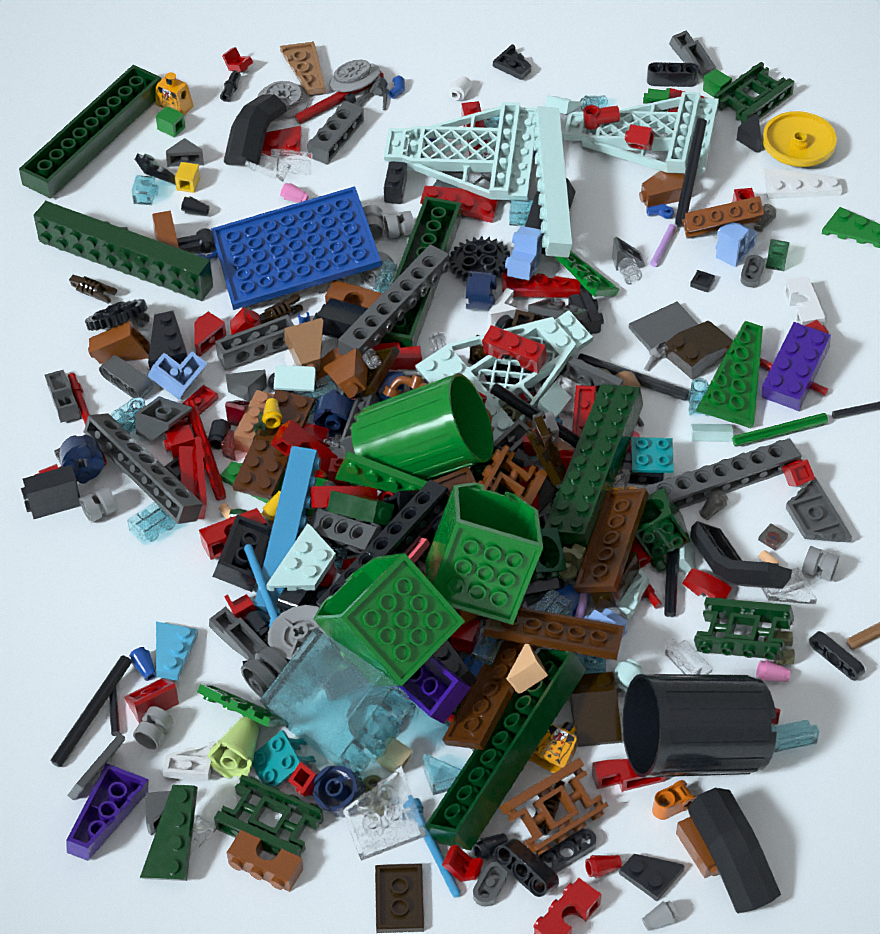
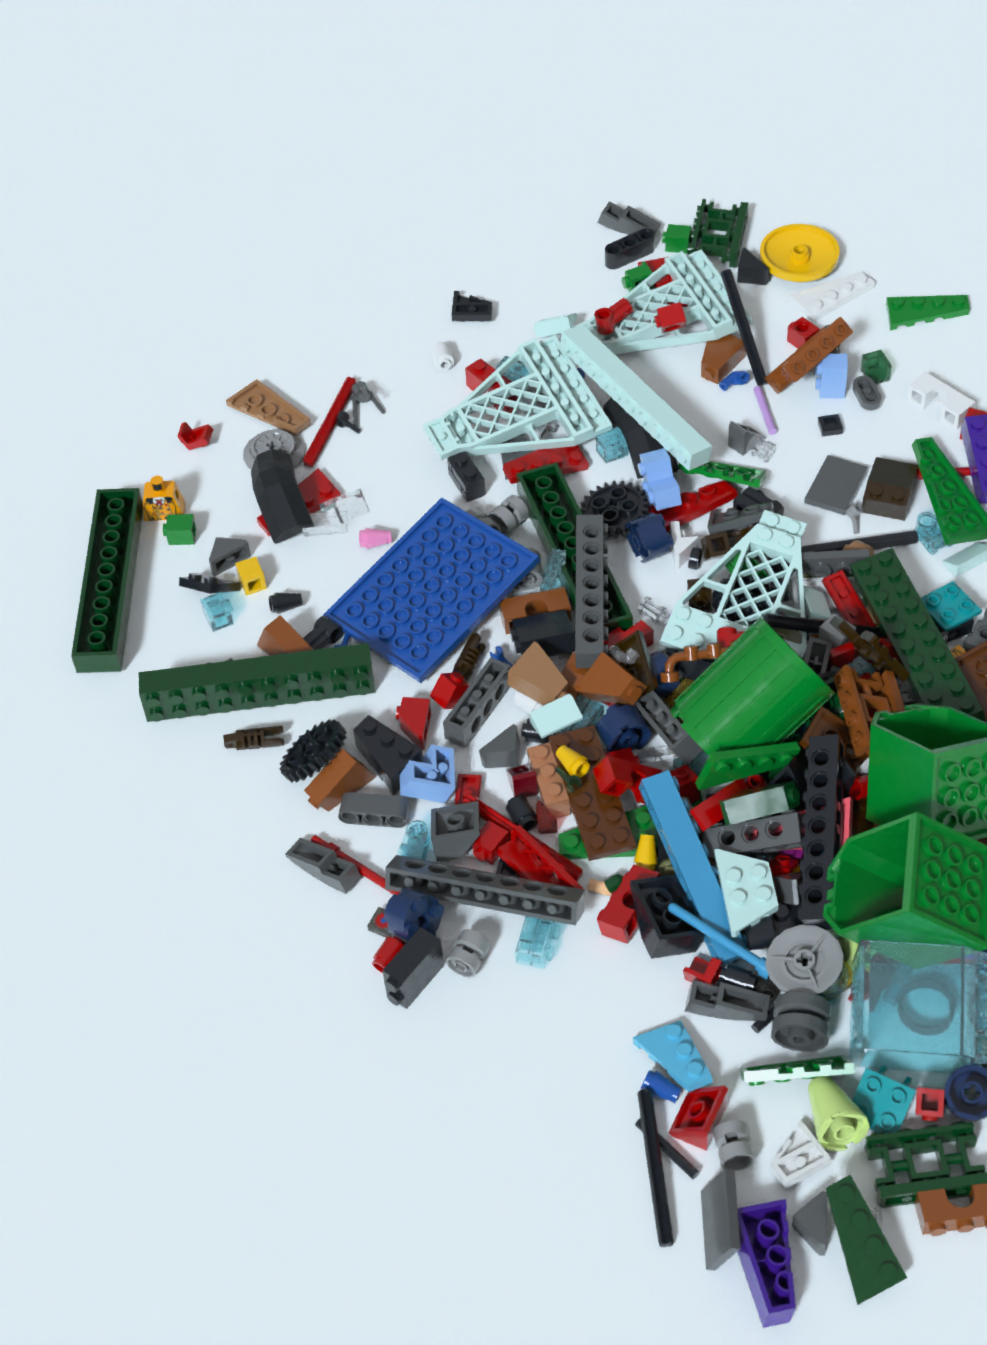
camera: 30 degrees left, 0 degrees up
(230, 86) = (209, 464): black axle -> none
(336, 132) = (360, 456): dark grey brick -> none
(354, 75) = (329, 394): light grey piece -> none
(399, 83) = (381, 384): blue arm -> none
(528, 352) = (769, 568): red arch -> none
(598, 100) = (581, 308): clear light blue cone -> none

